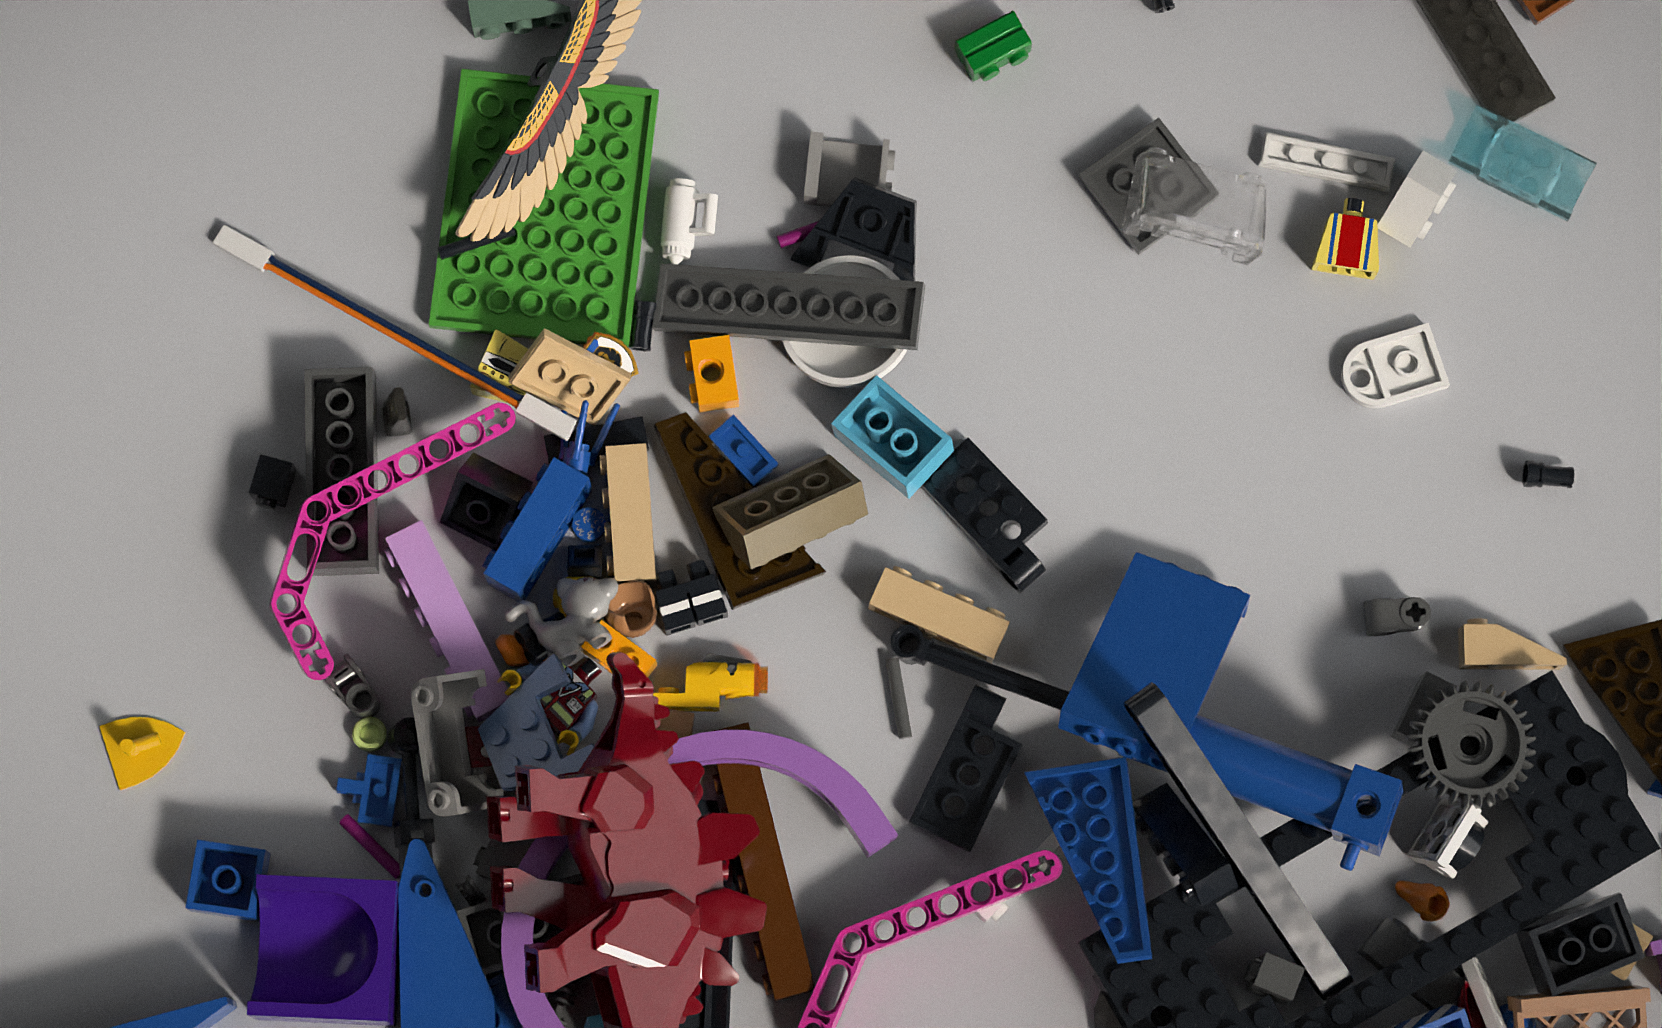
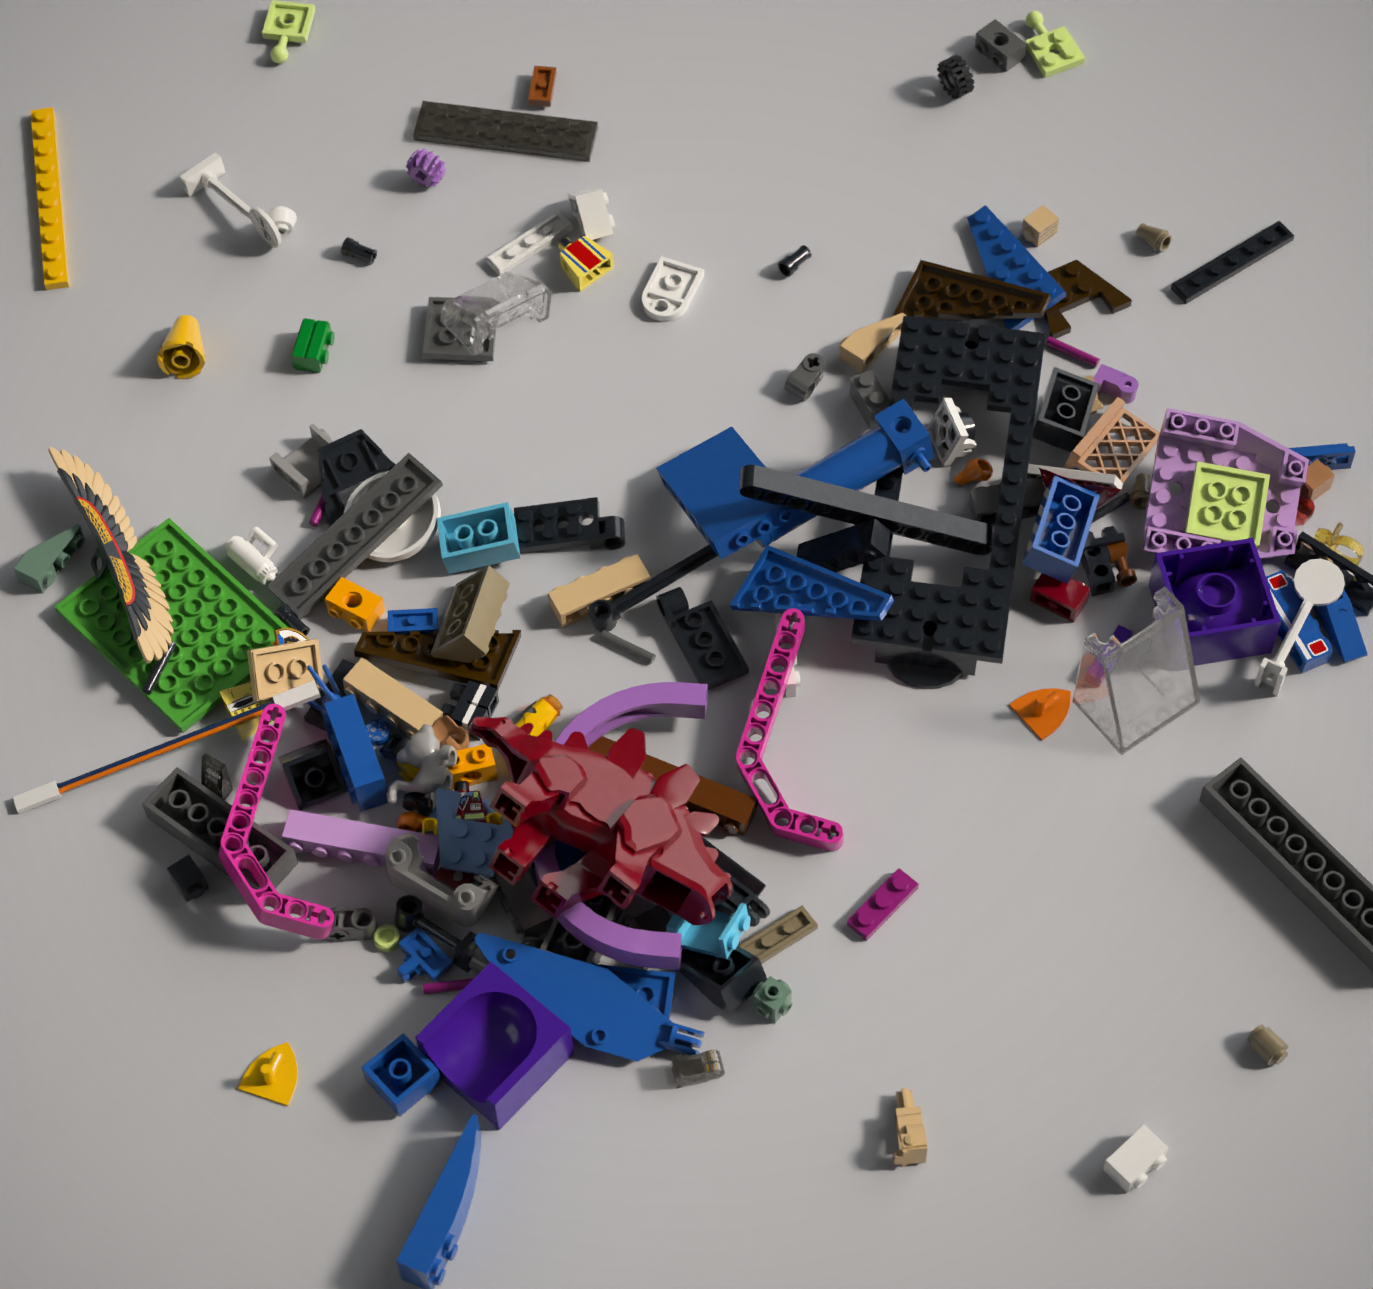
camera: 45 degrees left, 20 degrees down
(1273, 977) = (952, 562): dark grey brick -> none
(1495, 739) = (917, 357): dark grey gear -> none
(1521, 163) = (615, 157): clear light blue piece -> none

